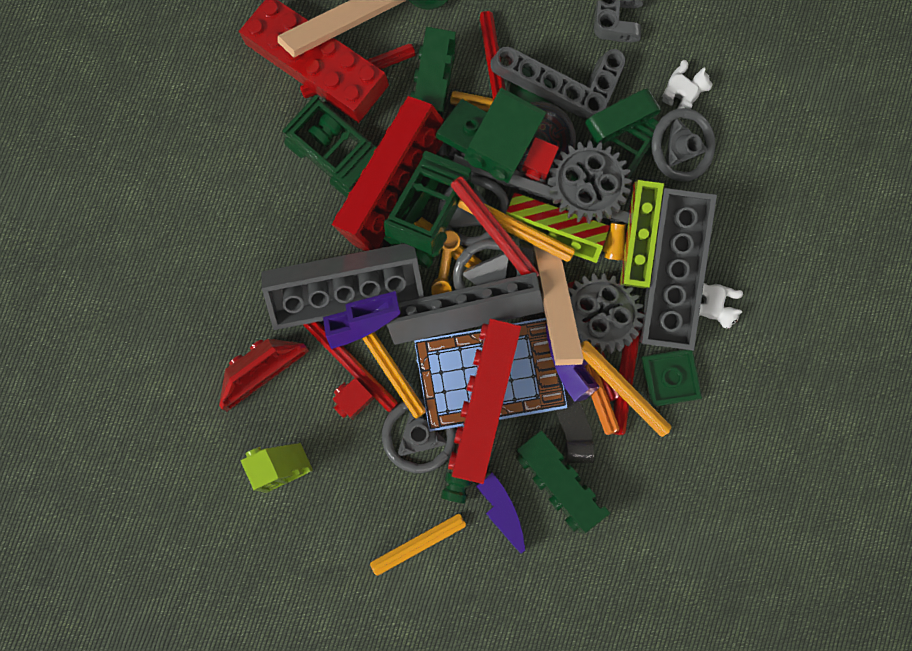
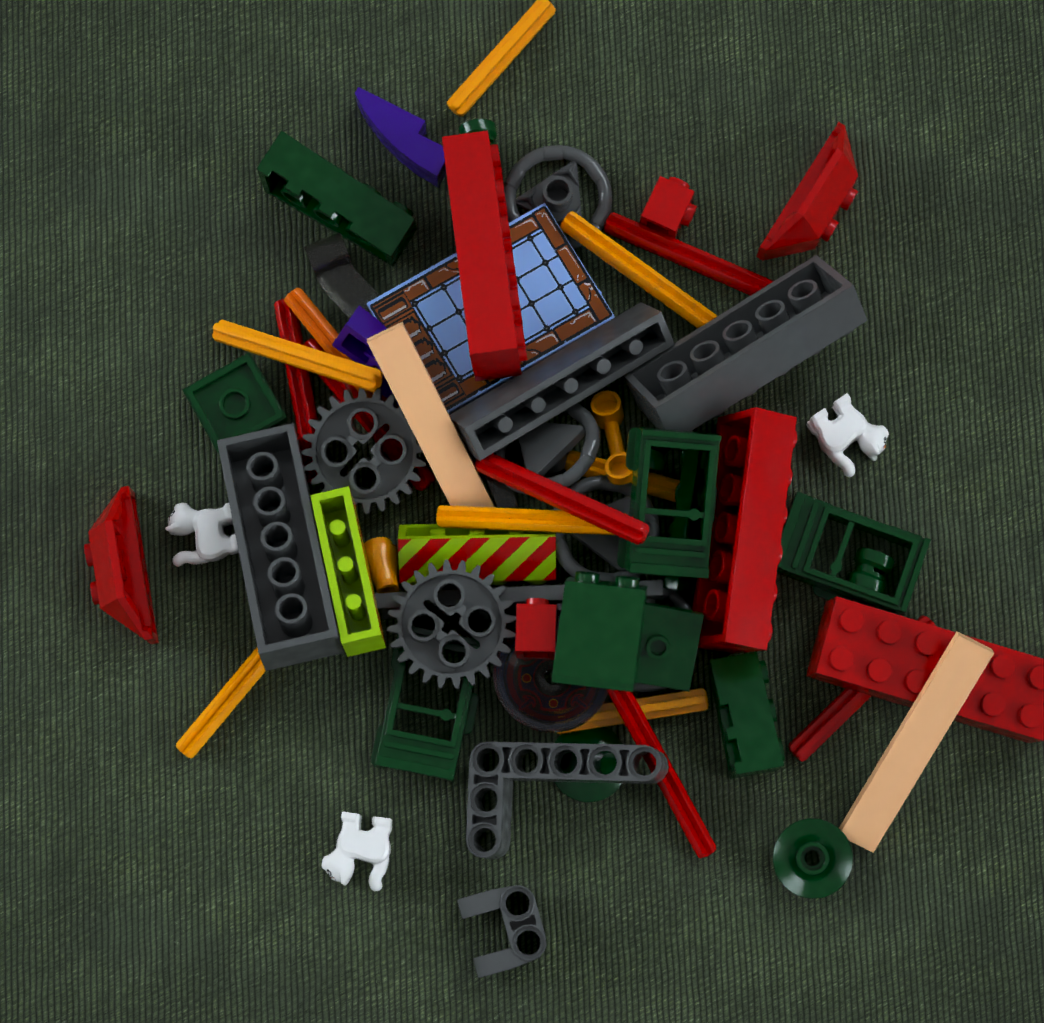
camera: 160 degrees right, 0 degrees up
(275, 466) = (736, 69): lime wedge -> none
(304, 219) = (841, 432): none -> white animal
(360, 319) = (700, 308): dark purple slope -> none
(623, 116) = (437, 745): dark green beam -> none
(683, 144) = (333, 749): dark grey piece -> none
(743, 197) = (221, 705): none -> light orange axle
(776, 299) = (121, 566): none -> red wedge

